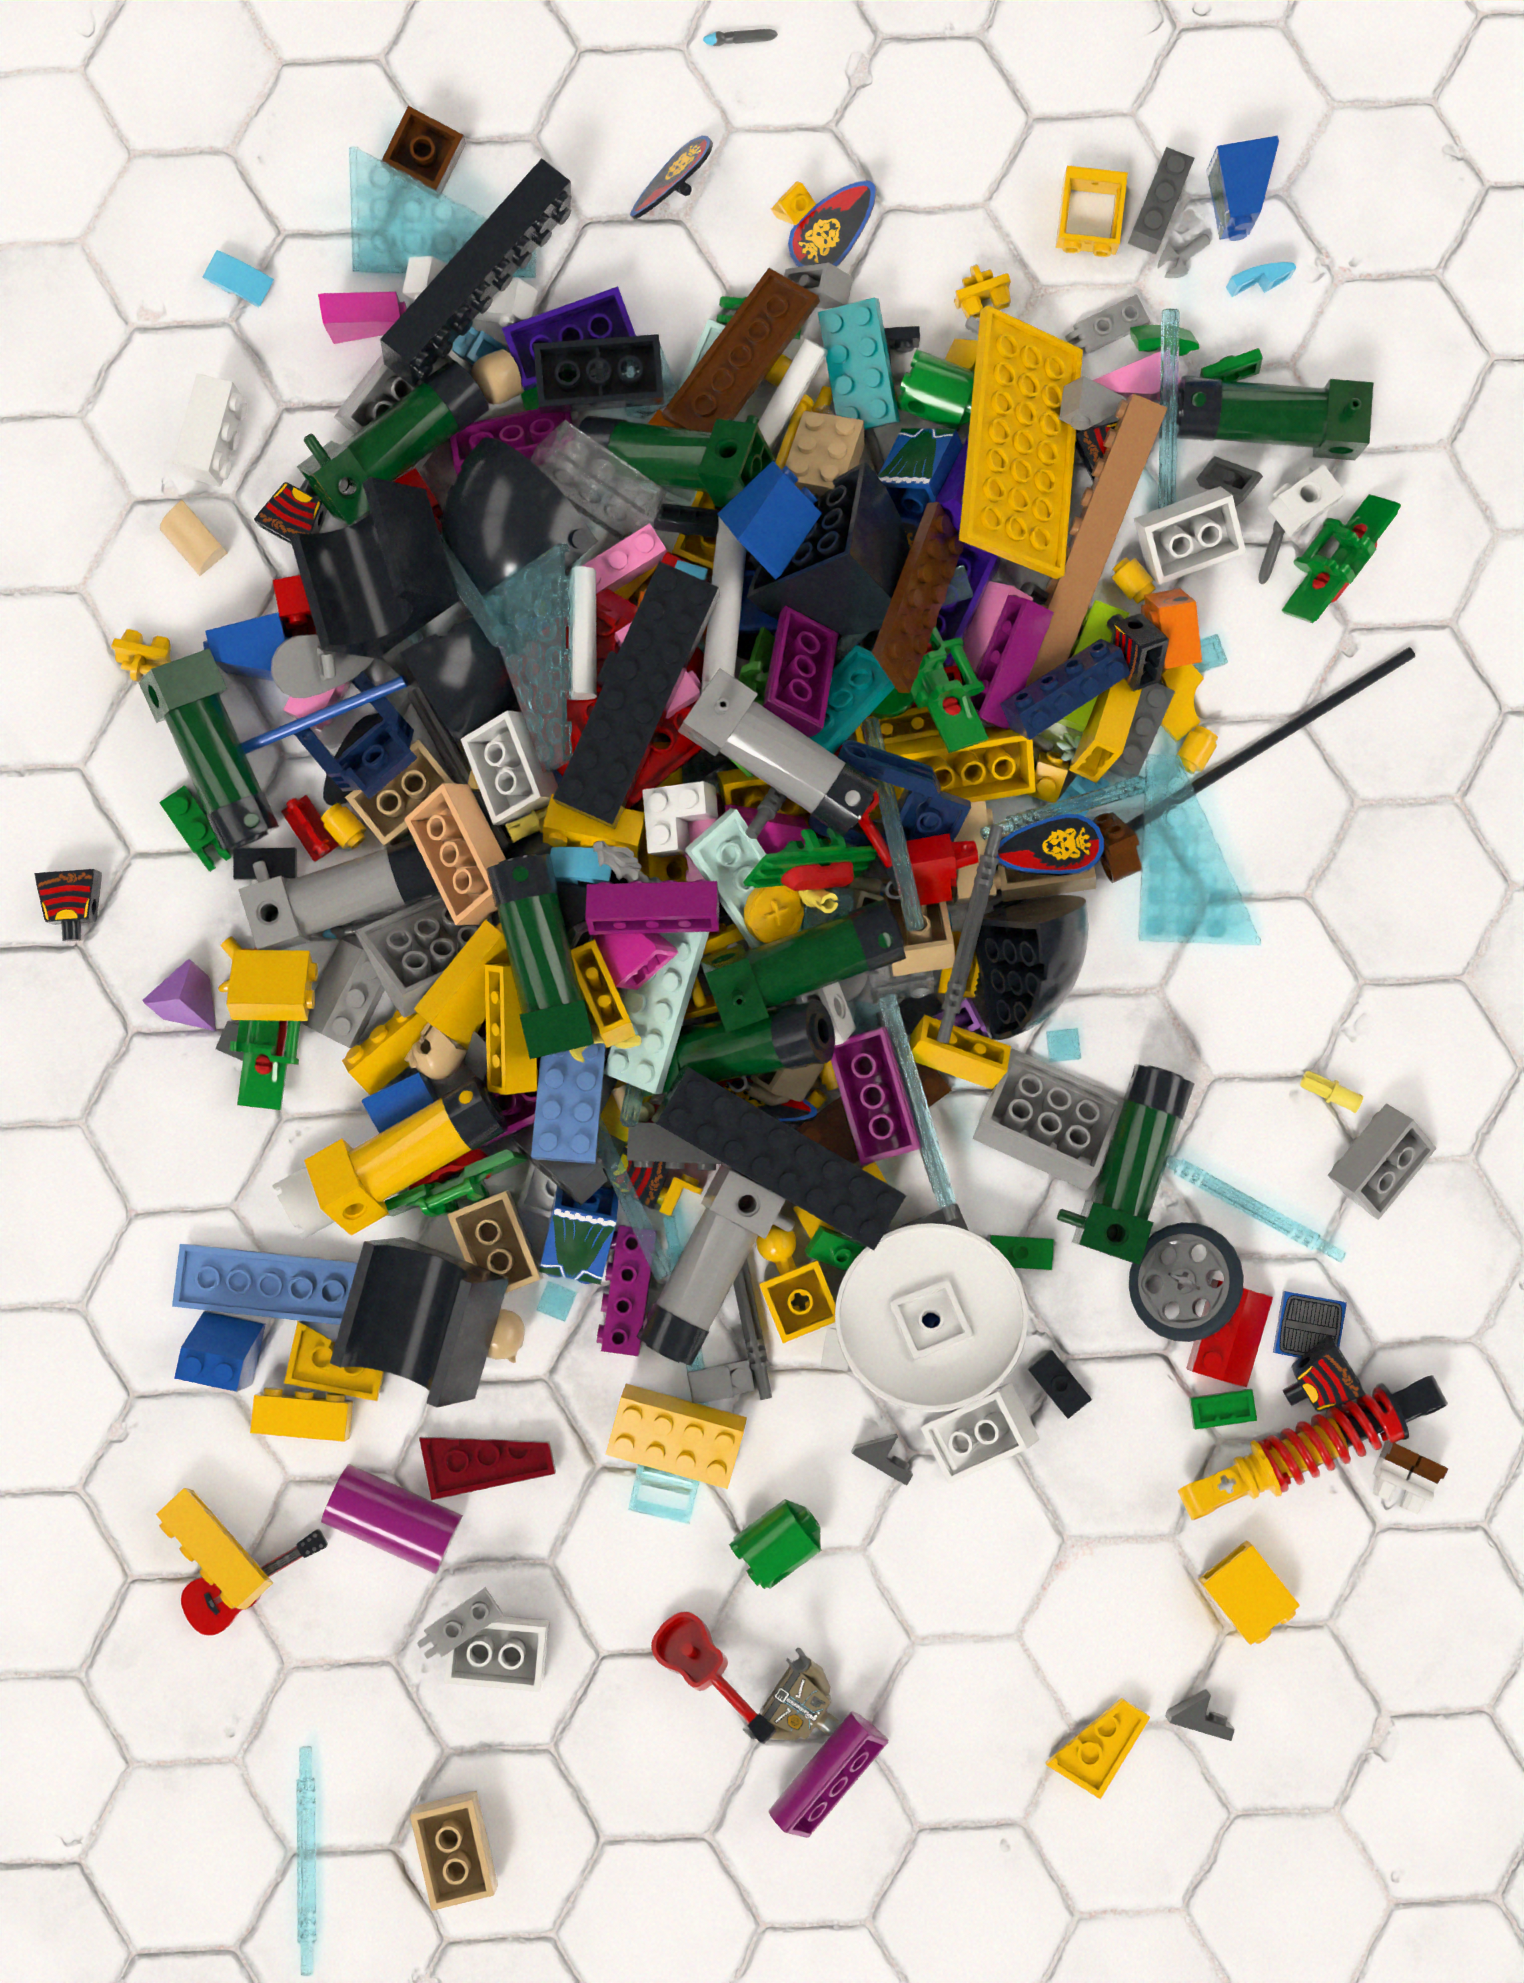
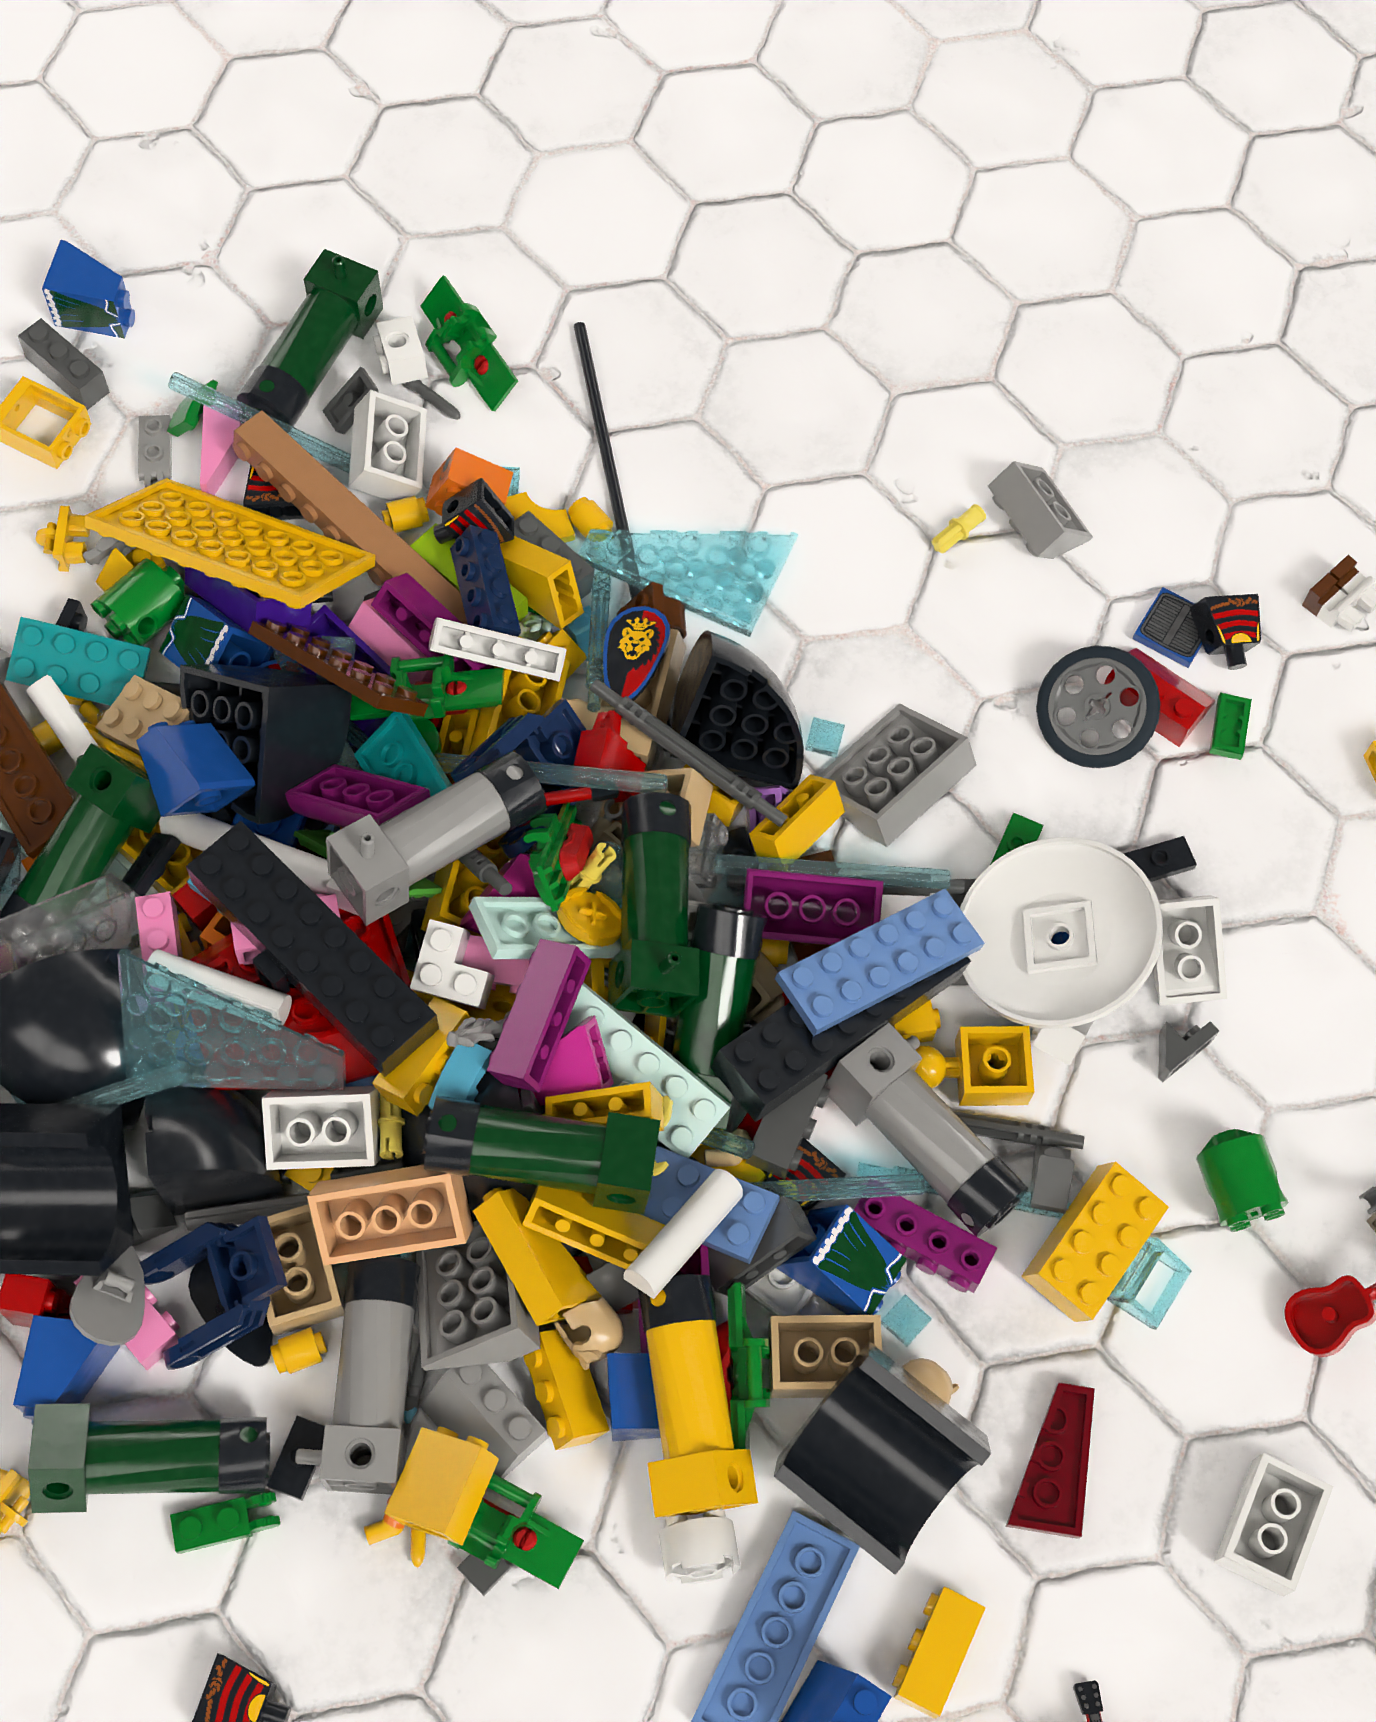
camera: 75 degrees left, 20 degrees down
(184, 997) = (410, 1609): medium lavender slope -> none
(309, 828) = (282, 1392): red hinge -> none
(311, 1368) = (891, 1603): yellow wing -> none
(325, 714) = (168, 1312): blue piece -> none
(391, 1518) = (1089, 1593): magenta brick -> none
(461, 1623) = (1234, 1545): light grey hinge -> none
(525, 1098) = (684, 1233): none -> white brick
(669, 1196) = (835, 1149): yellow bracket -> none
(831, 1173) = (878, 961): none -> medium blue plate
(833, 1248) = (954, 1010): green plate -> none
(999, 726) = (497, 649): none -> white brick
(1087, 403) = (220, 482): light grey slope -> none
(1133, 1165) = (1012, 741): dark green piece -> none
(1182, 256) = (123, 371): light grey bar -> none
(1235, 367) = (251, 357): green plate -> none
(1254, 1208) = (1036, 638): clear light blue axle -> none
(1265, 275) = (178, 313): medium azure slope -> none
(1303, 1450) = (1293, 657): piece -> none

